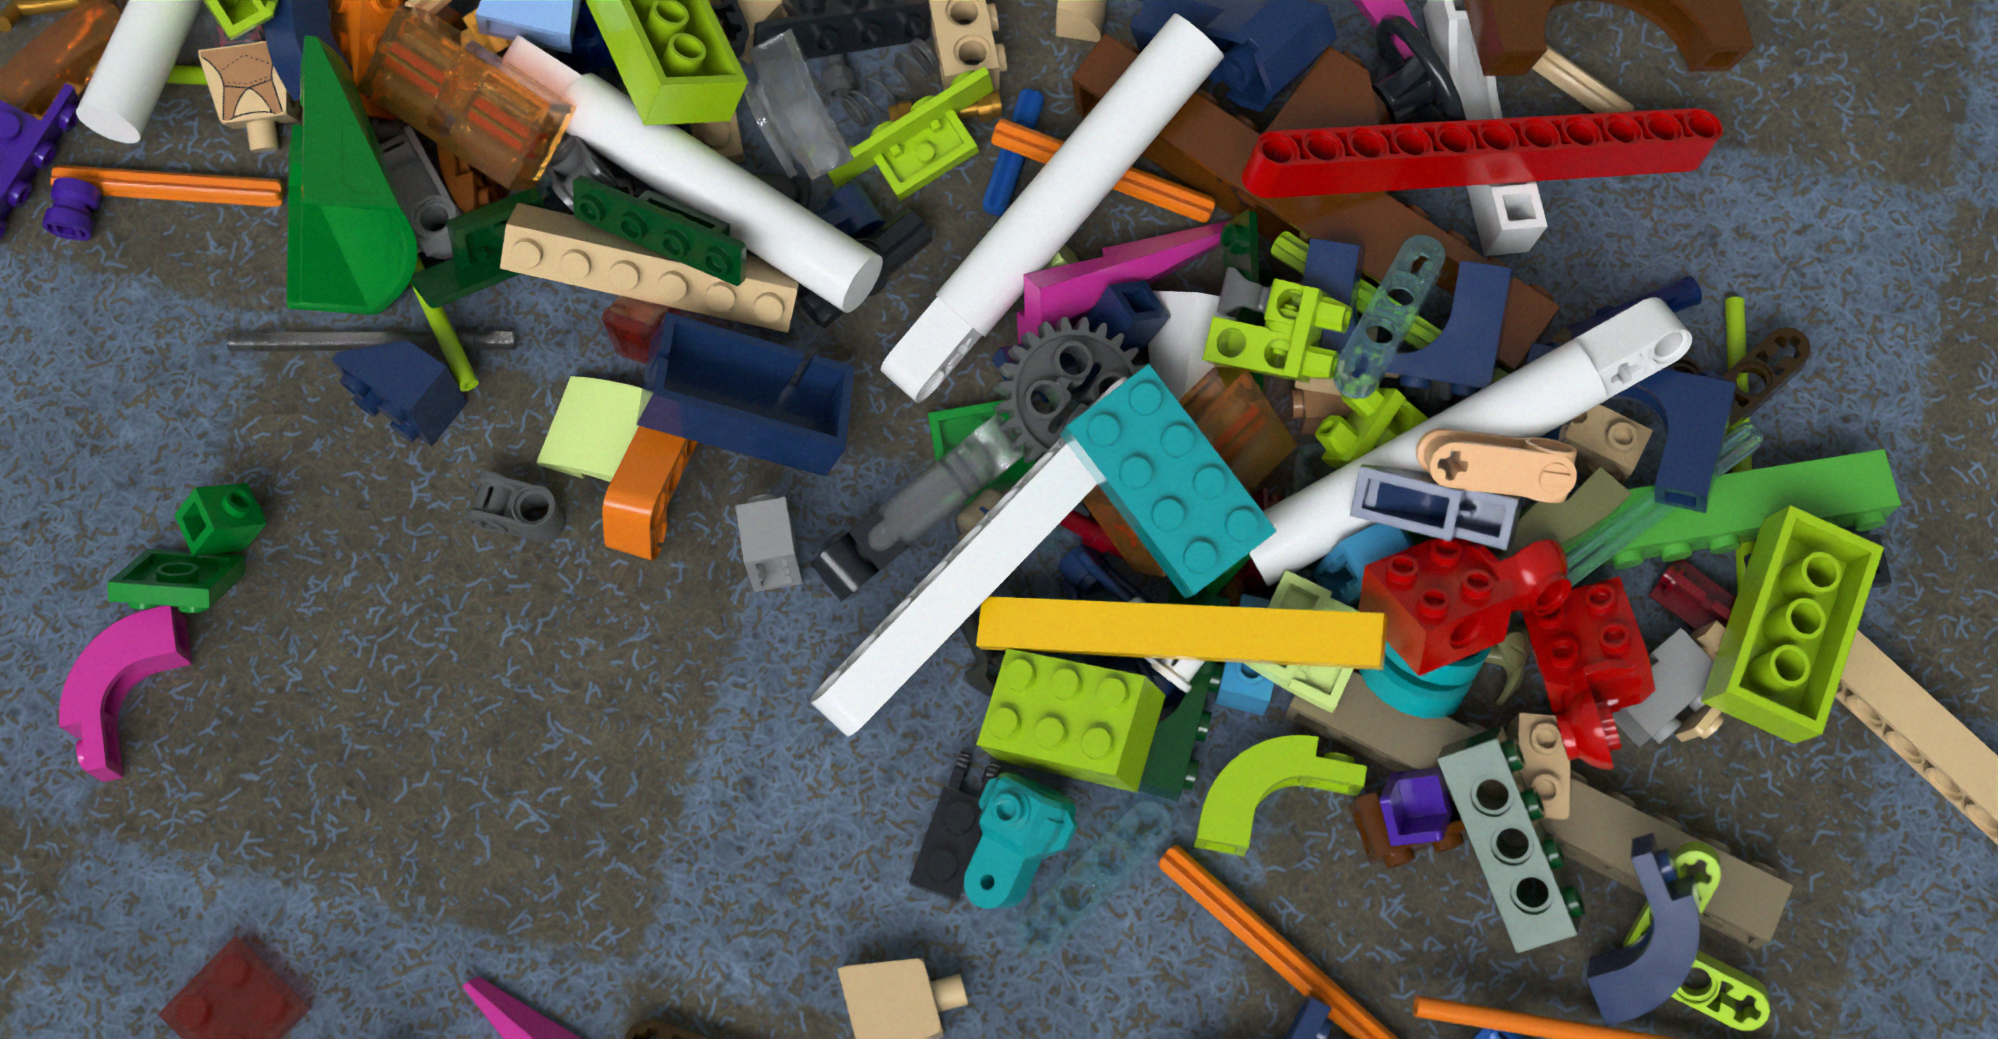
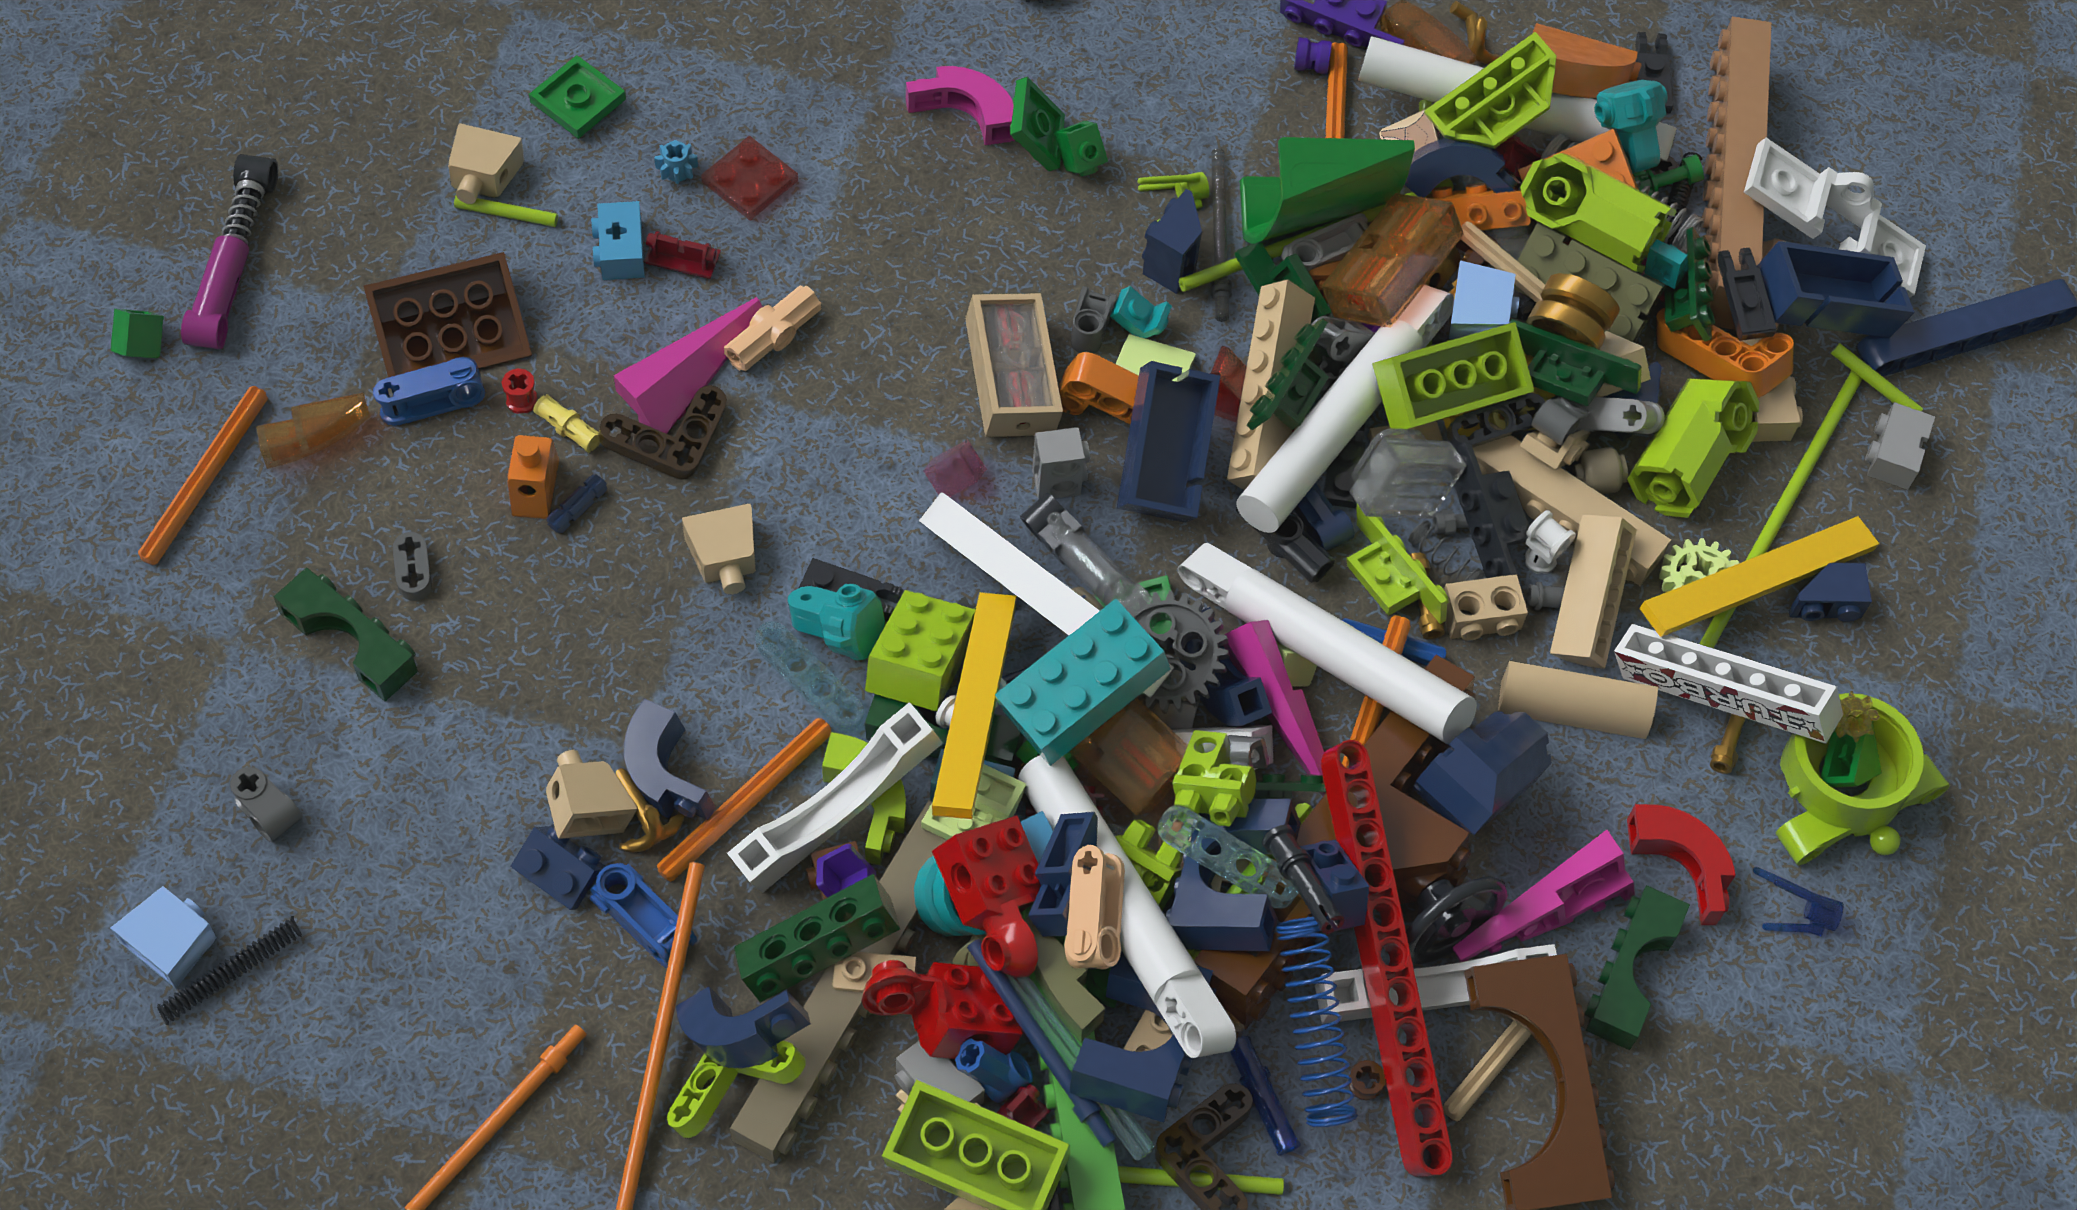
camera: 85 degrees right, 10 degrees down
(296, 380) = (1194, 182): none -> lime plant
(514, 441) = (1140, 315): none -> teal bracket
(519, 958) = (772, 328): none -> light nougat piece
(596, 610) = (1013, 364): none -> brick
(764, 690) = (955, 469): none -> clear pink panel
(1348, 874) = (790, 838): none -> white arch
(1412, 229) = (1296, 866): none -> black pin
(1420, 194) = (1340, 881): none -> dark blue slope
(1585, 214) = (1358, 1087): none -> reddish brown bush
(1633, 237) = (1306, 928): none -> blue piece
(1638, 549) = (1084, 1109): none -> dark blue bar
(1656, 614) = (997, 1073): none -> blue piece

